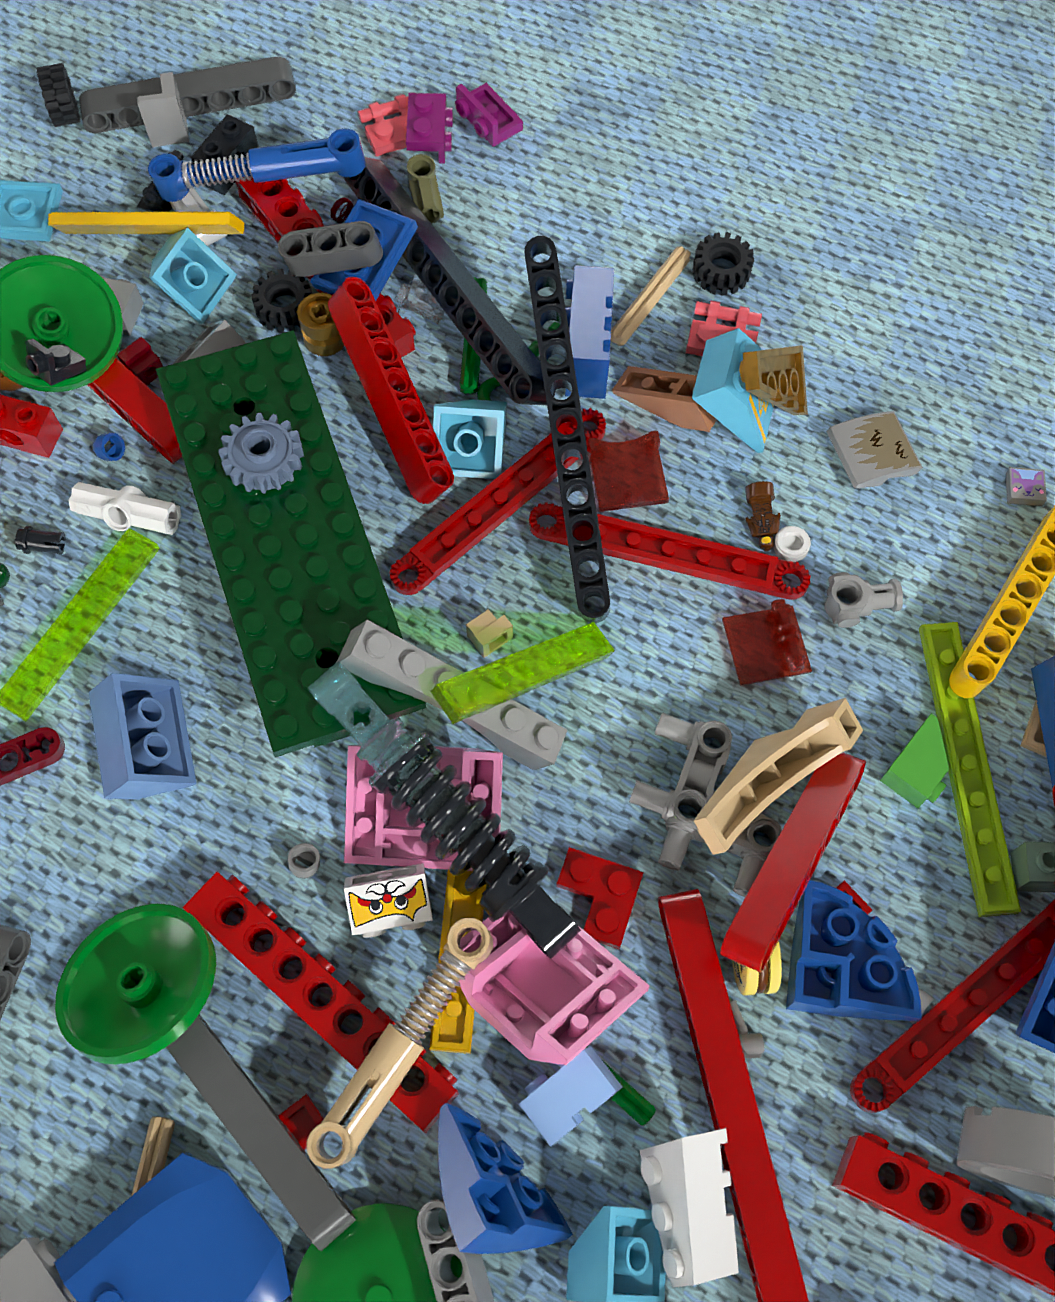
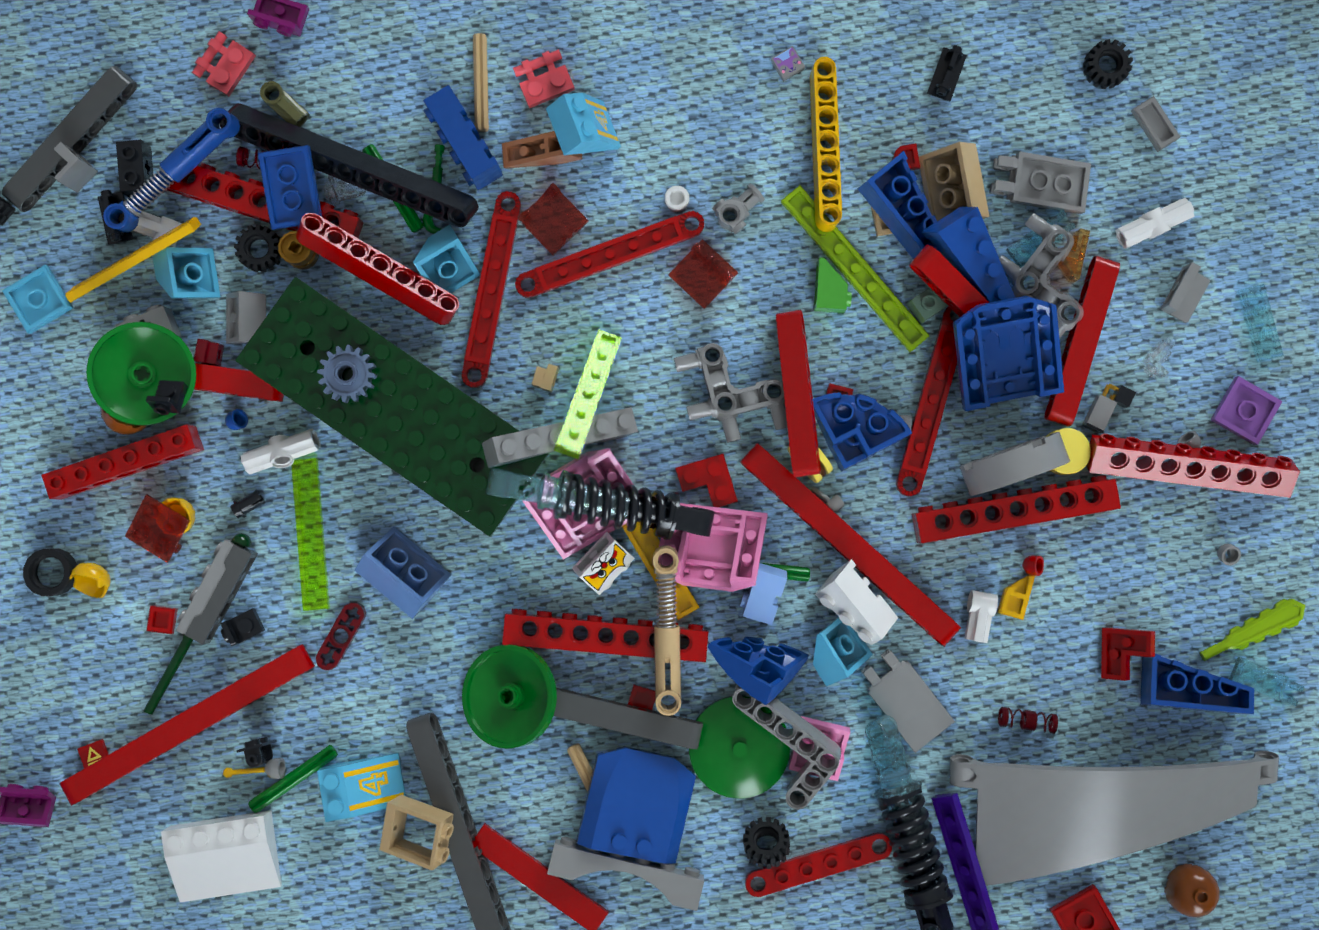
camera: 40 degrees left, 20 degrees up
(307, 855) = (542, 569): light grey hinge -> none
(309, 251) = (260, 207): dark grey beam -> none
(428, 124) = (247, 53): magenta bracket -> none
(561, 411) = (493, 219): black beam -> none
(726, 249) = (503, 15): black tyre -> none
(762, 523) = (652, 196): reddish brown piece -> none
(773, 767) = (754, 352): tan arch -> none
(777, 377) = (603, 103): pearl gold wing -> none
(874, 449) = (685, 101): slope -> none

